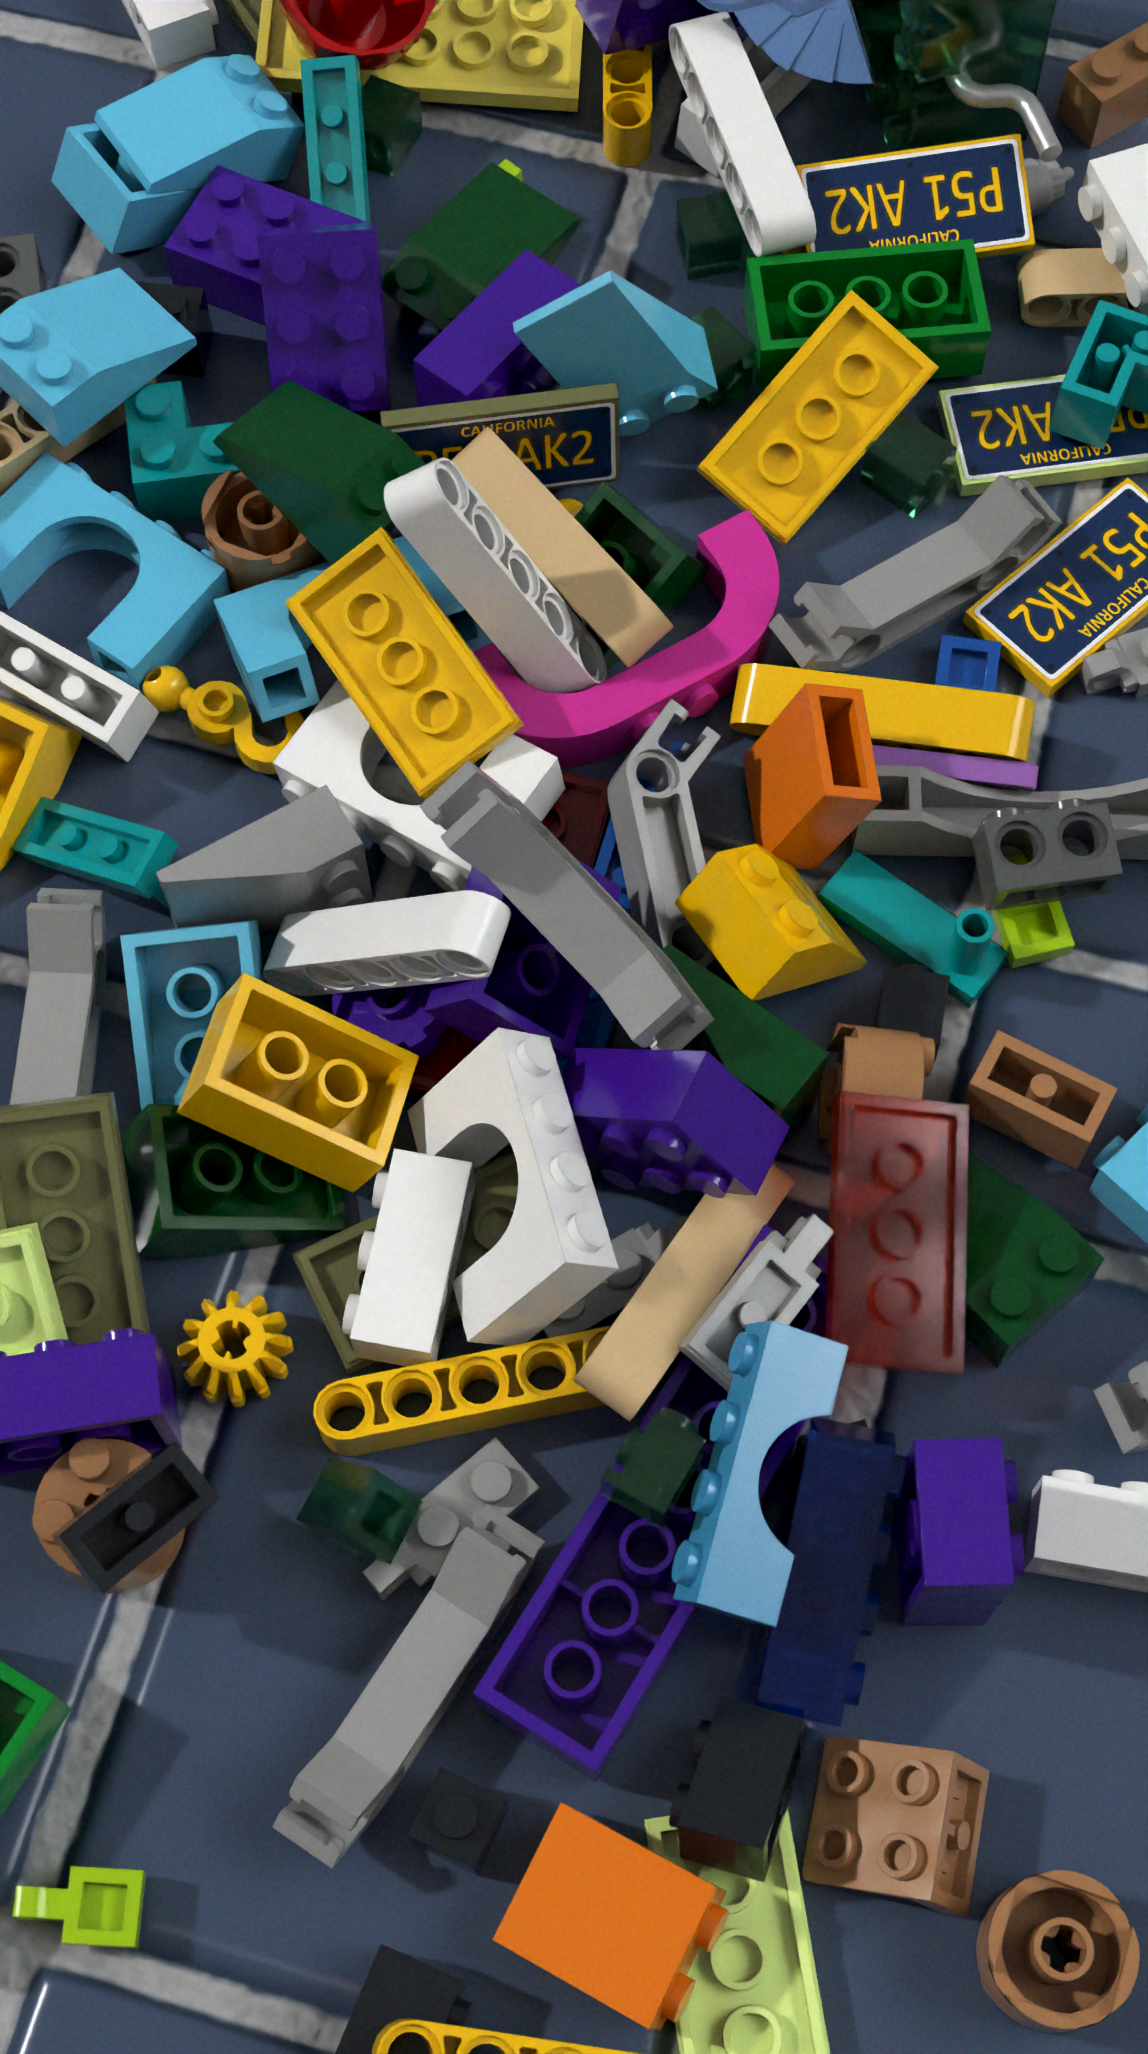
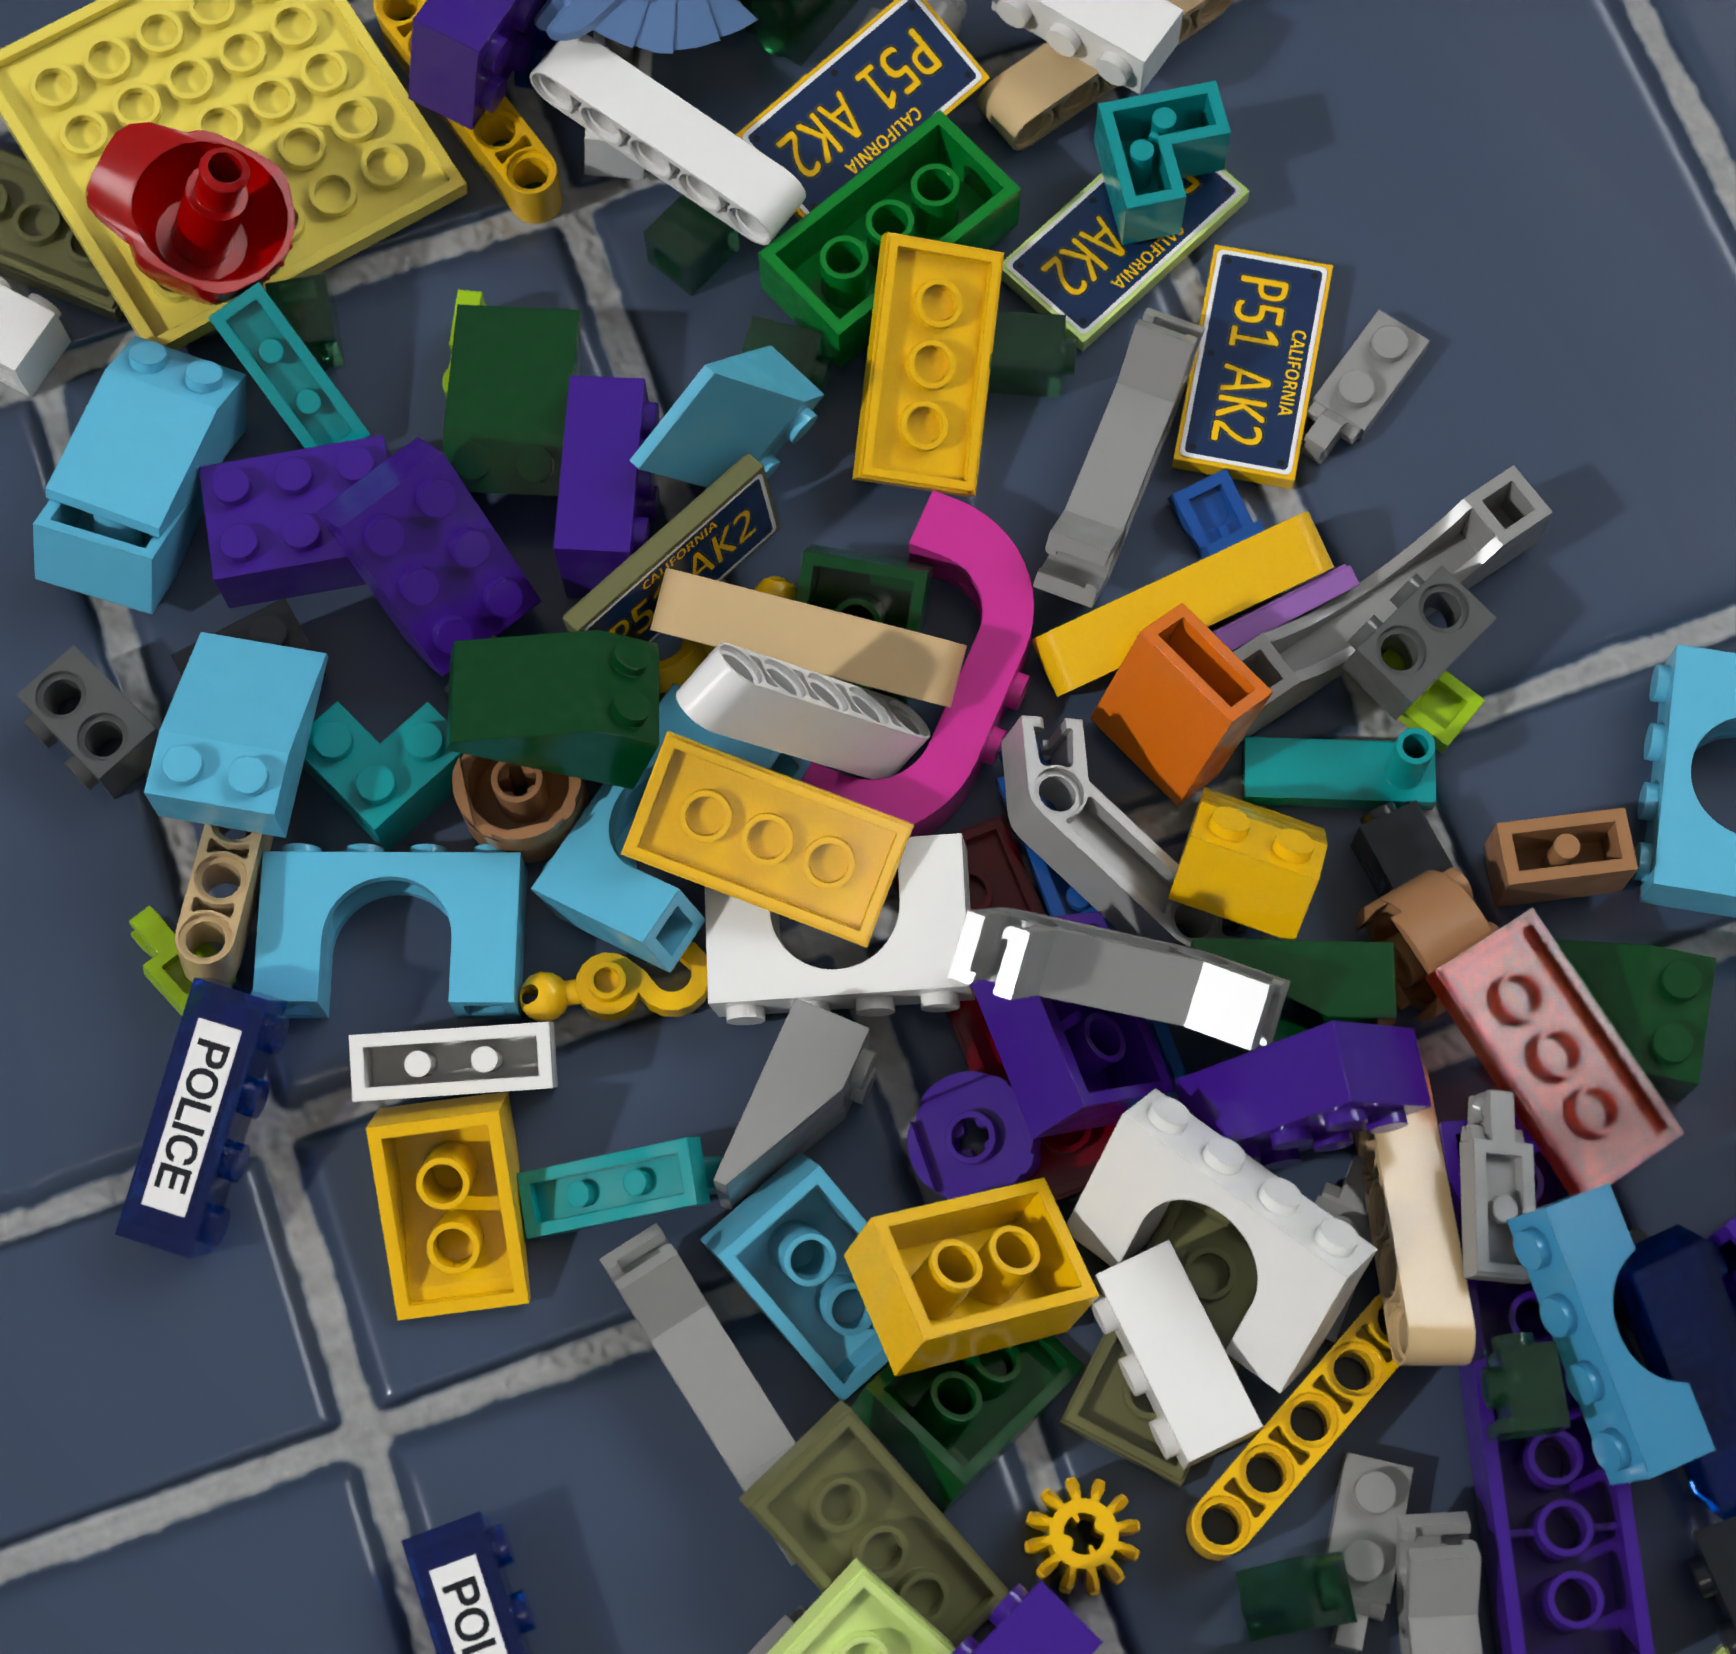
camera: 35 degrees left, 5 degrees up
(388, 944) = (957, 1103): white beam -> none

